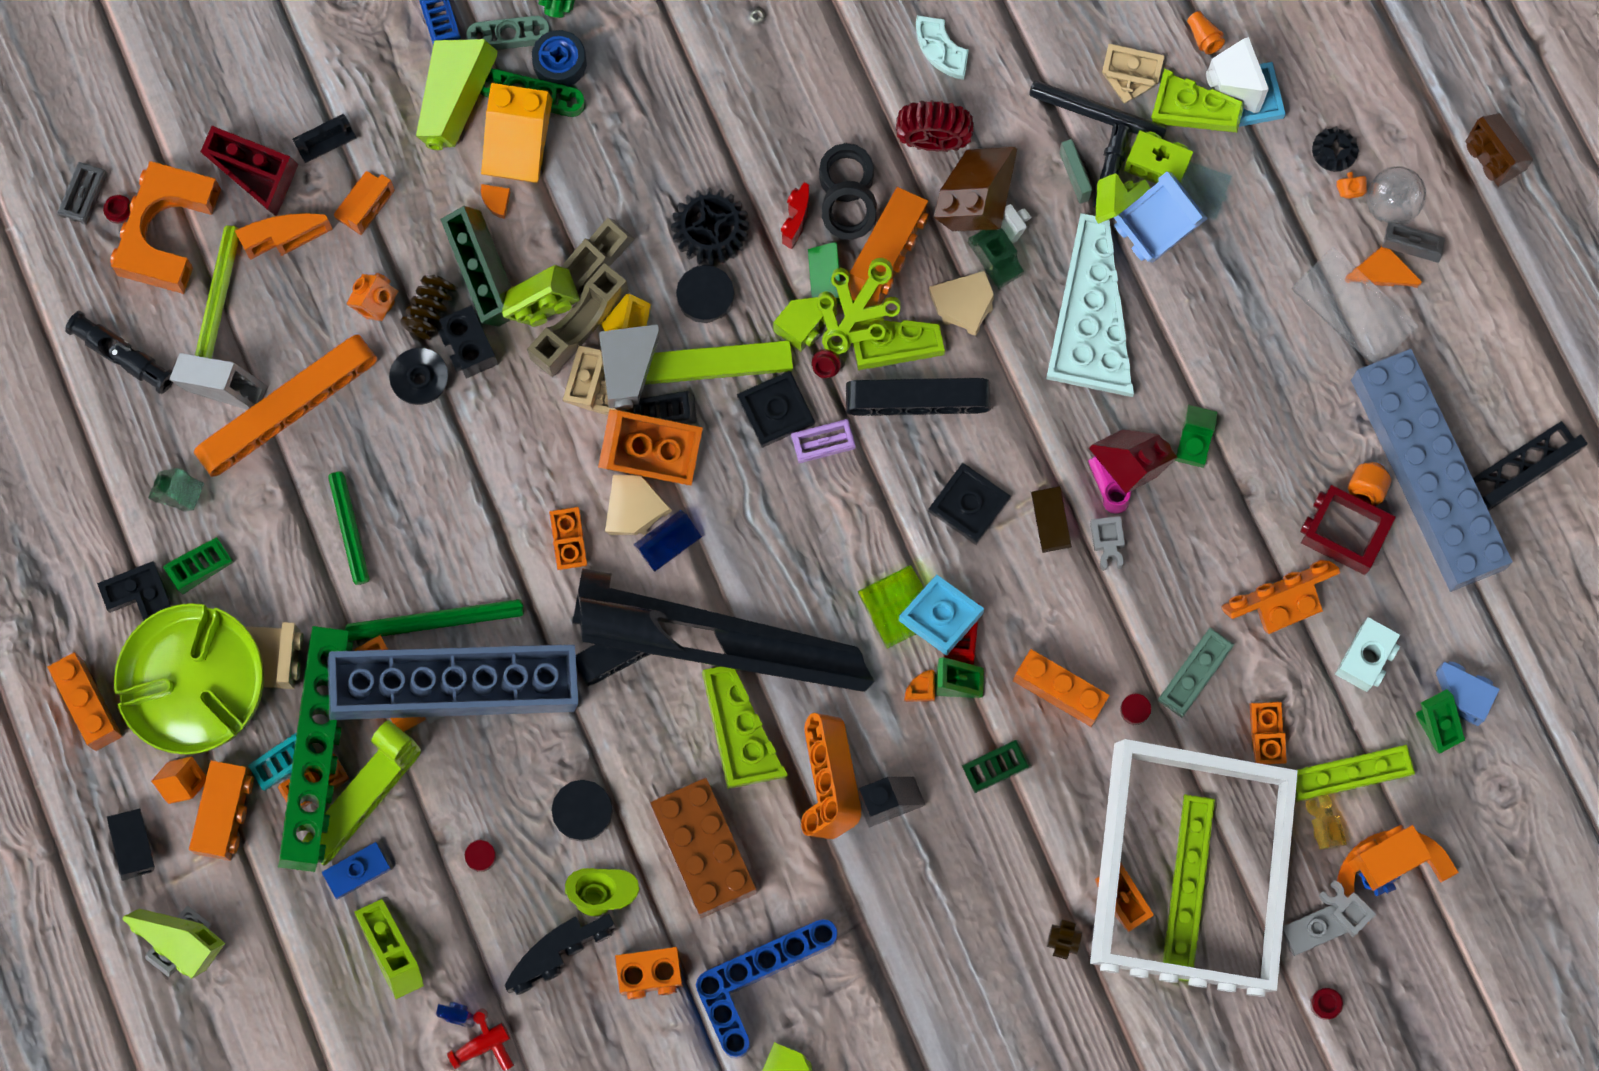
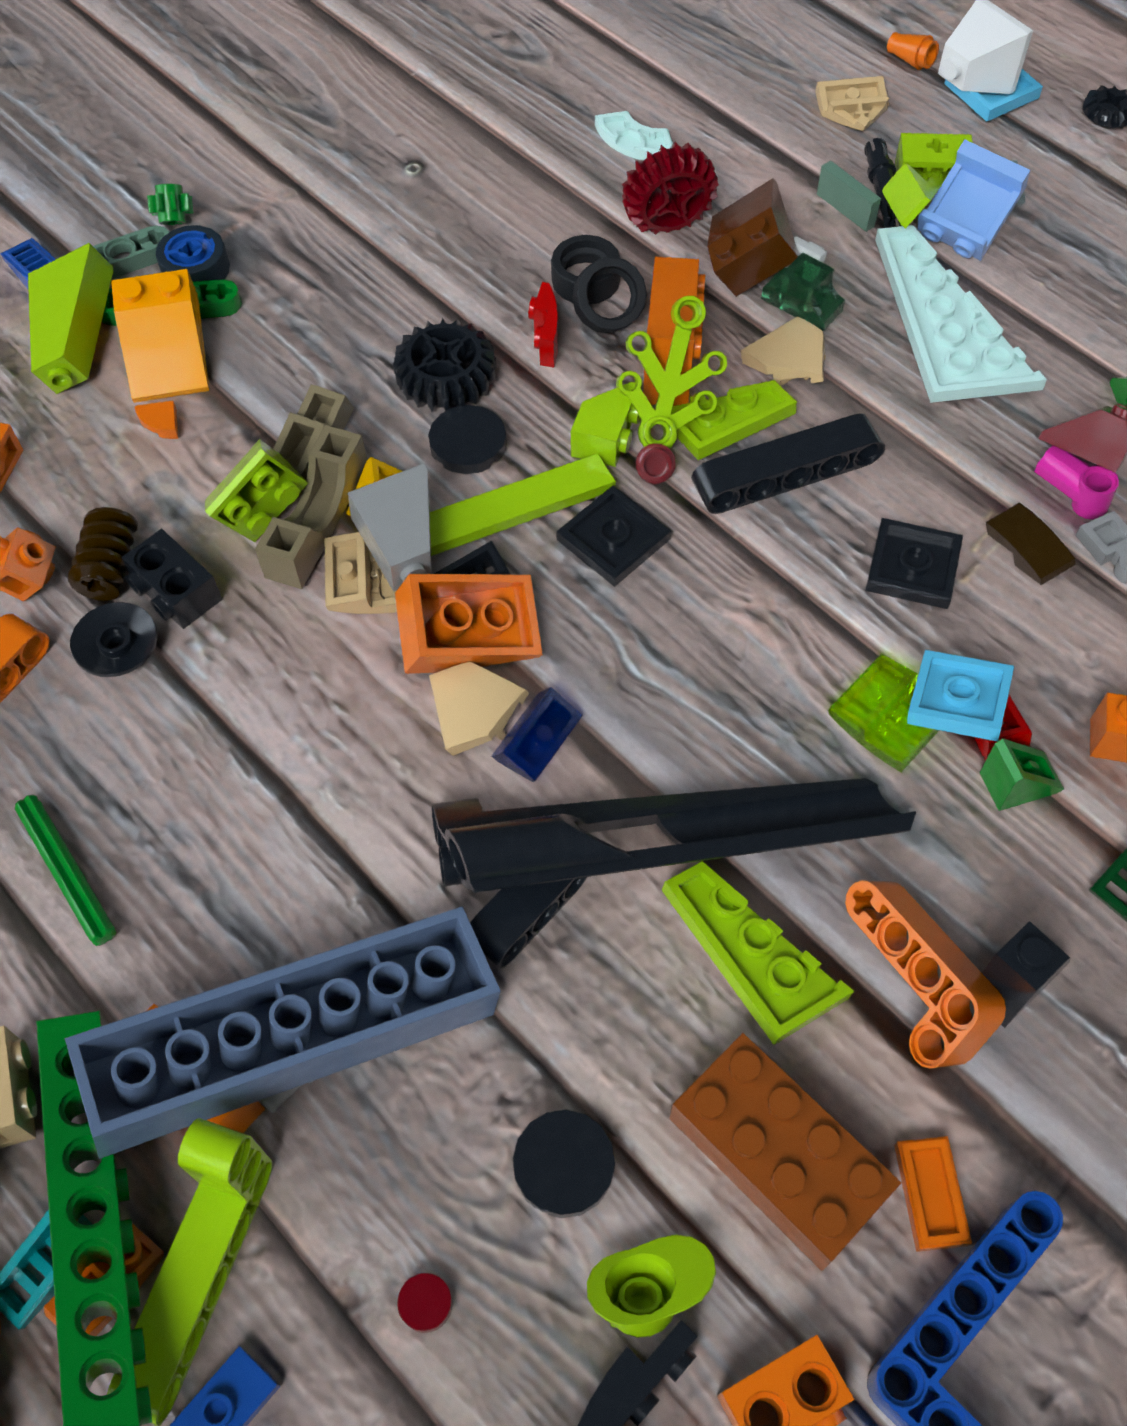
camera: 20 degrees left, 15 degrees down
(435, 619) = (234, 953): green axle -> none
(478, 263) = (159, 484): dark green brick -> none
(568, 538) = (395, 776): orange slope -> none
(779, 901) = (932, 1194): none -> orange tile
(822, 263) = (603, 364): slope -> none
(824, 452) = (697, 556): lavender tile -> none
(921, 688) = (977, 805): orange tile -> none
(1093, 109) = (821, 142): black axle -> none
(1192, 106) = (938, 107): lime wing -> none

